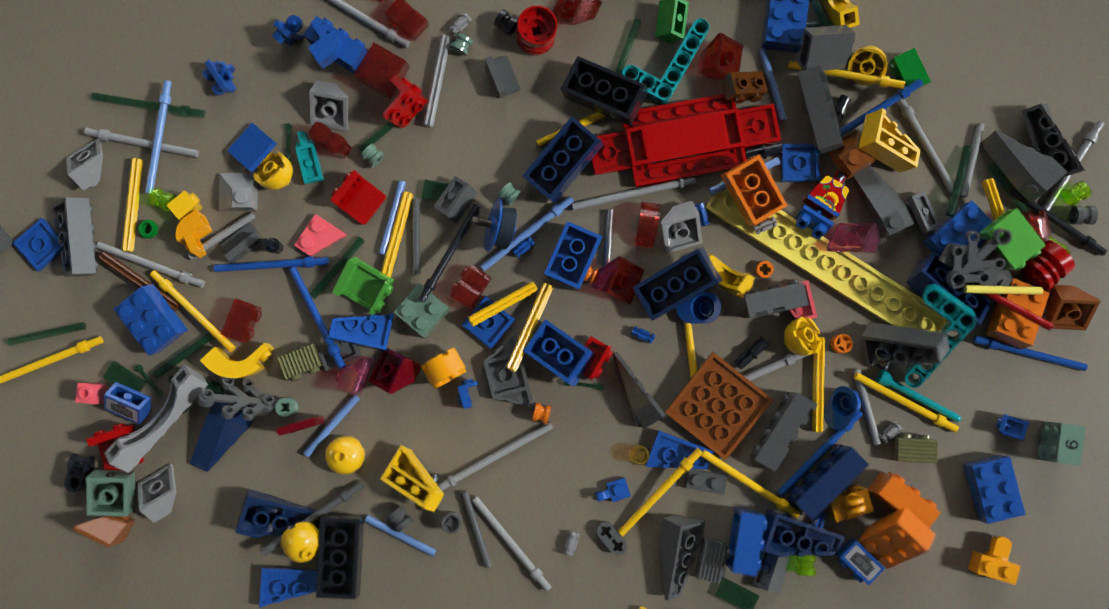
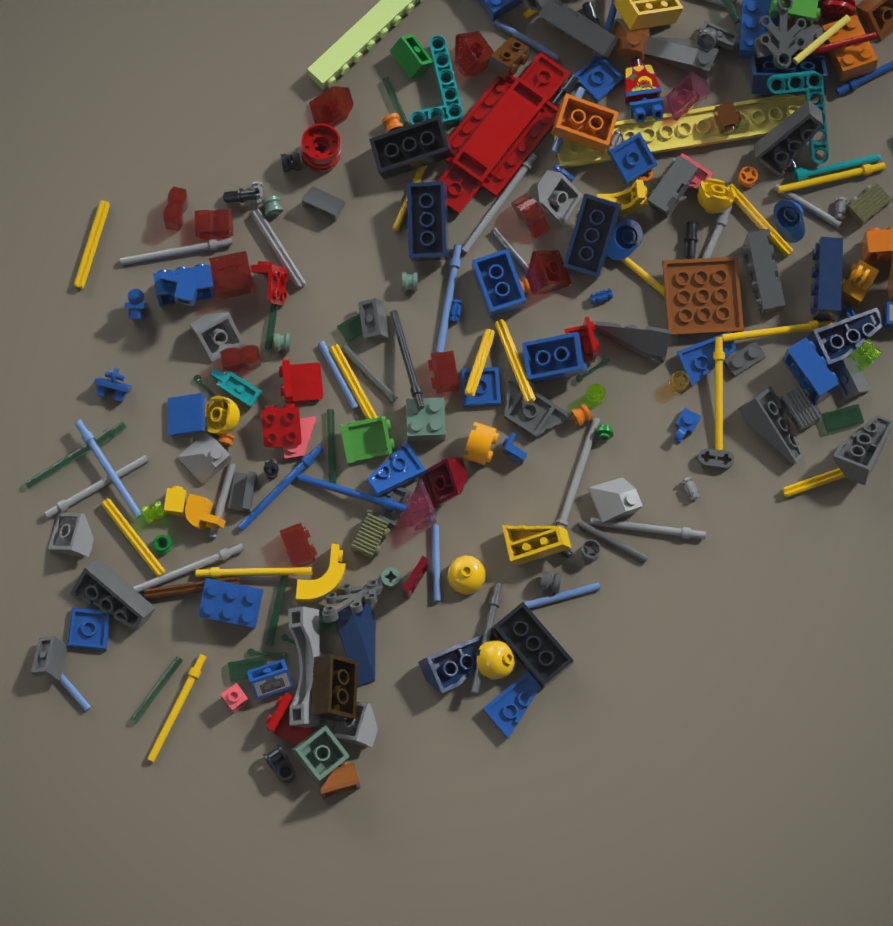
camera: 45 degrees left, 10 degrees down
(161, 456) = (334, 688): none -> dark brown brick
(263, 192) = (226, 439): none -> orange bush
(311, 218) = (281, 426): none -> red bracket
(445, 15) = (241, 195): none -> black axle
(499, 226) = (425, 308): piece -> none
(505, 500) = (615, 499): none -> light grey slope
(546, 441) = (604, 432): none -> green plate
(566, 407) = (596, 398): none -> clear neon green wheel
(609, 59) = (392, 122): none -> orange wheel
(765, 250) = (632, 158): none -> blue tile
(817, 455) = (805, 269): blue bar -> none
(869, 284) = (727, 117): none -> reddish brown brick
(909, 211) = (704, 41): none -> flat silver wheel

